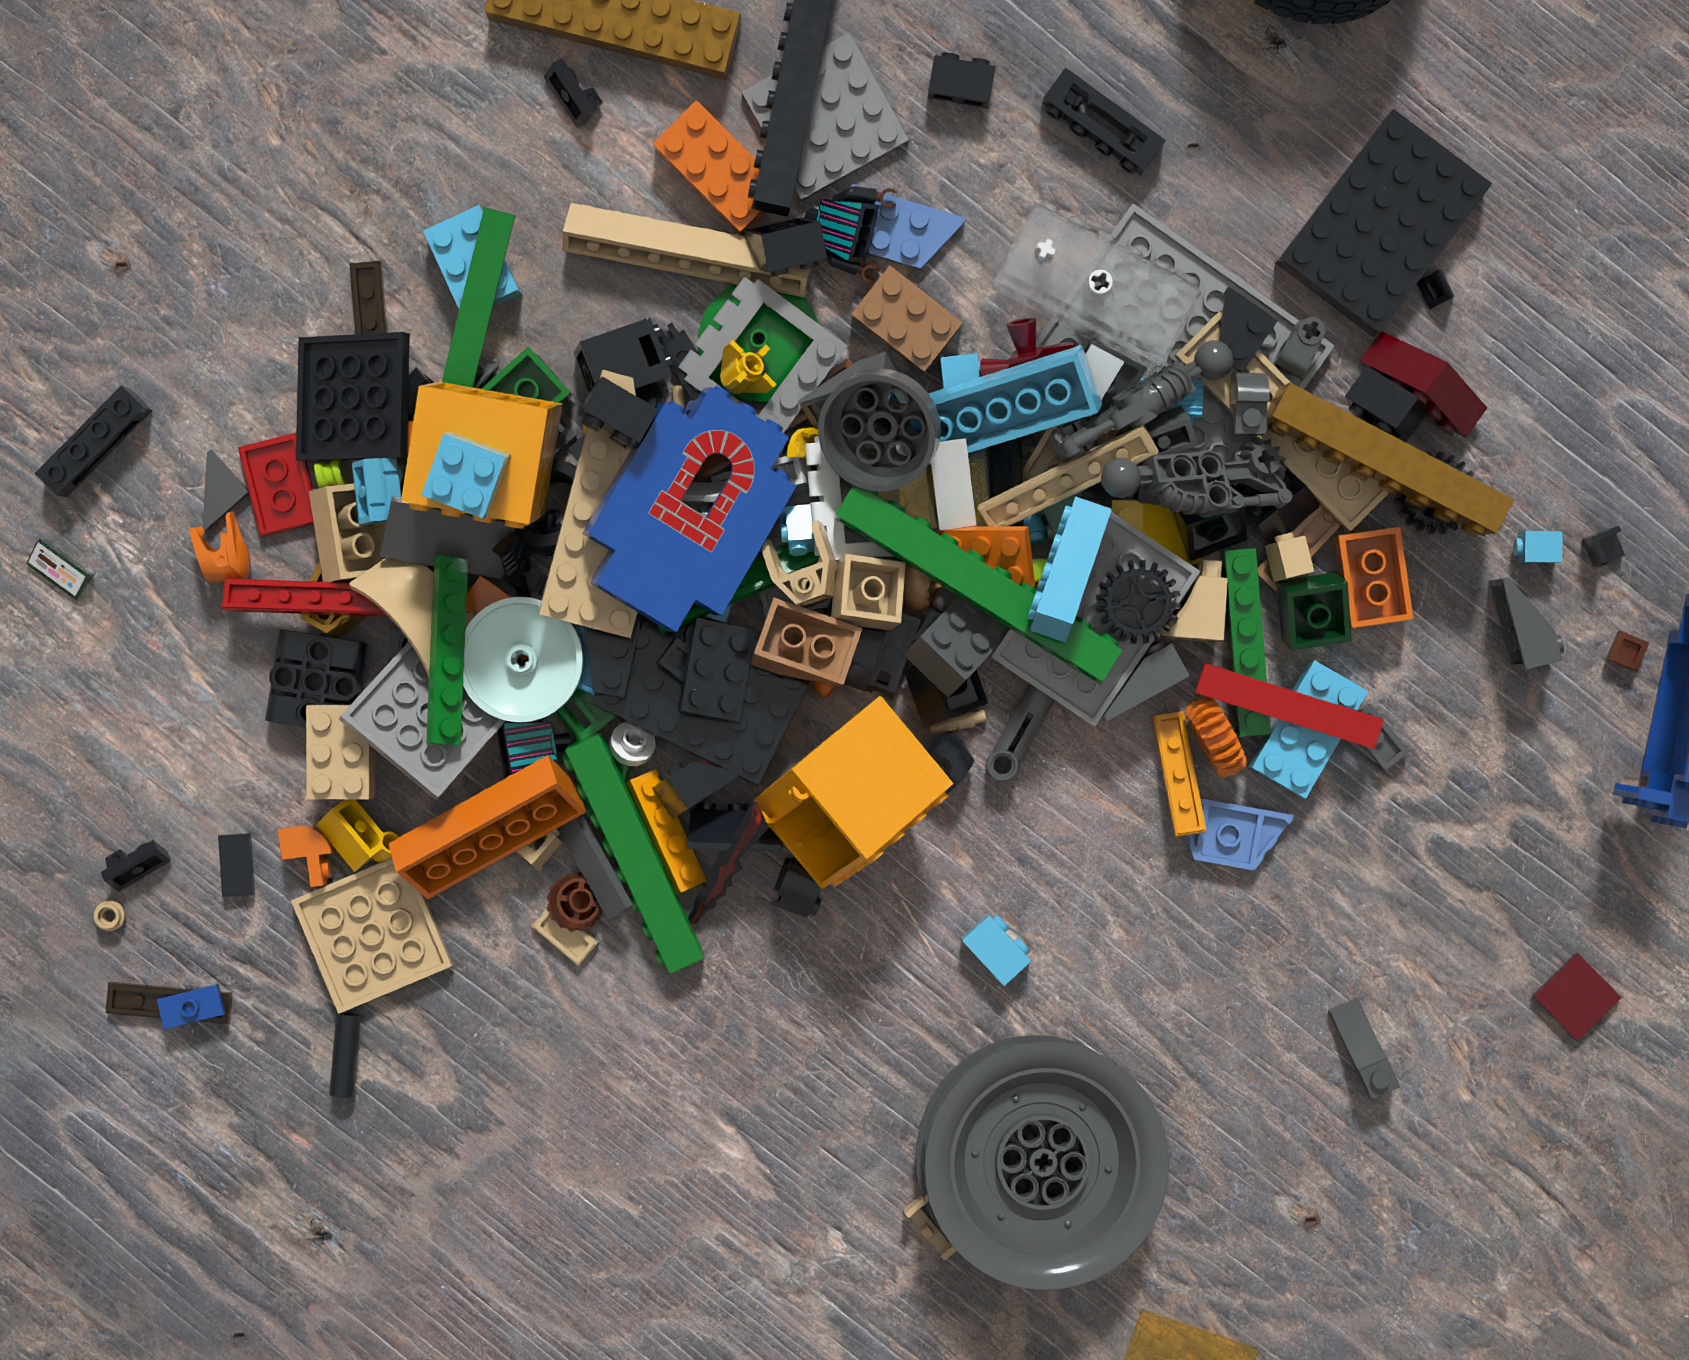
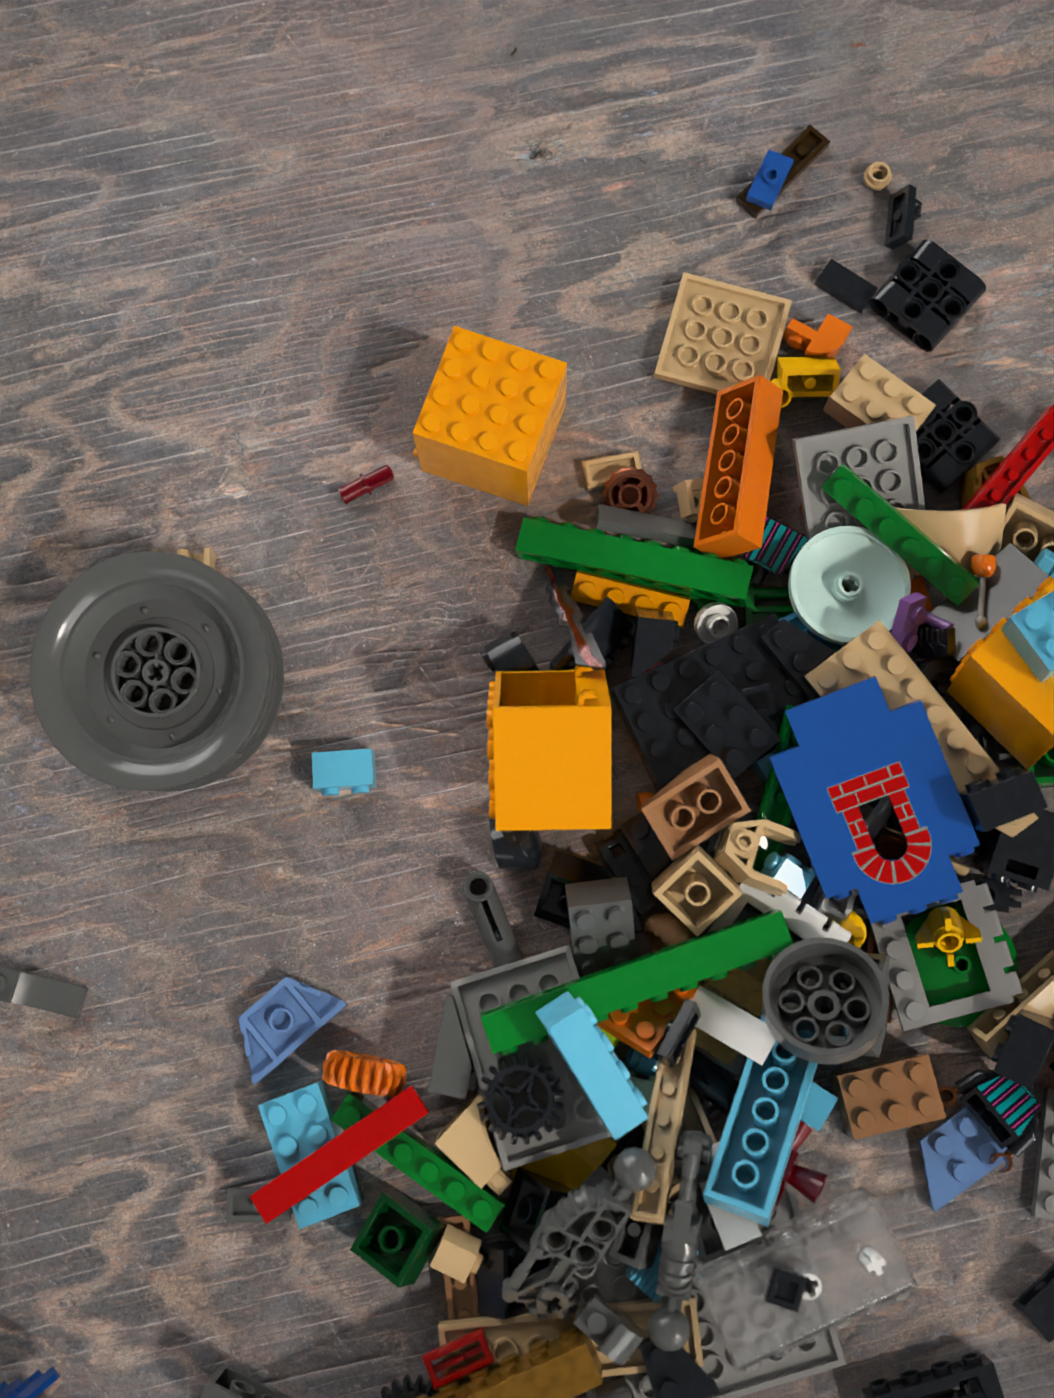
camera: 135 degrees right, 10 degrees down
(172, 764) = (924, 271): none -> black connector
(344, 1055) = (650, 256): black piece -> none
(420, 561) = (982, 567): none -> hinge
(513, 590) = (910, 616): none -> medium lavender plate
(608, 1068) = (490, 415): none -> light orange piece
(743, 1132) = (366, 483): none -> dark red axle
(959, 722) = (536, 881): tan animal -> none
(991, 519) = (678, 1032): none -> black plate
(1116, 298) = (785, 1289): none -> black tile
(1179, 774) = (359, 1019): light orange tile -> none
(1337, 484) = (452, 1346): none -> red tile
(1375, 576) = (386, 1316): orange brick -> none

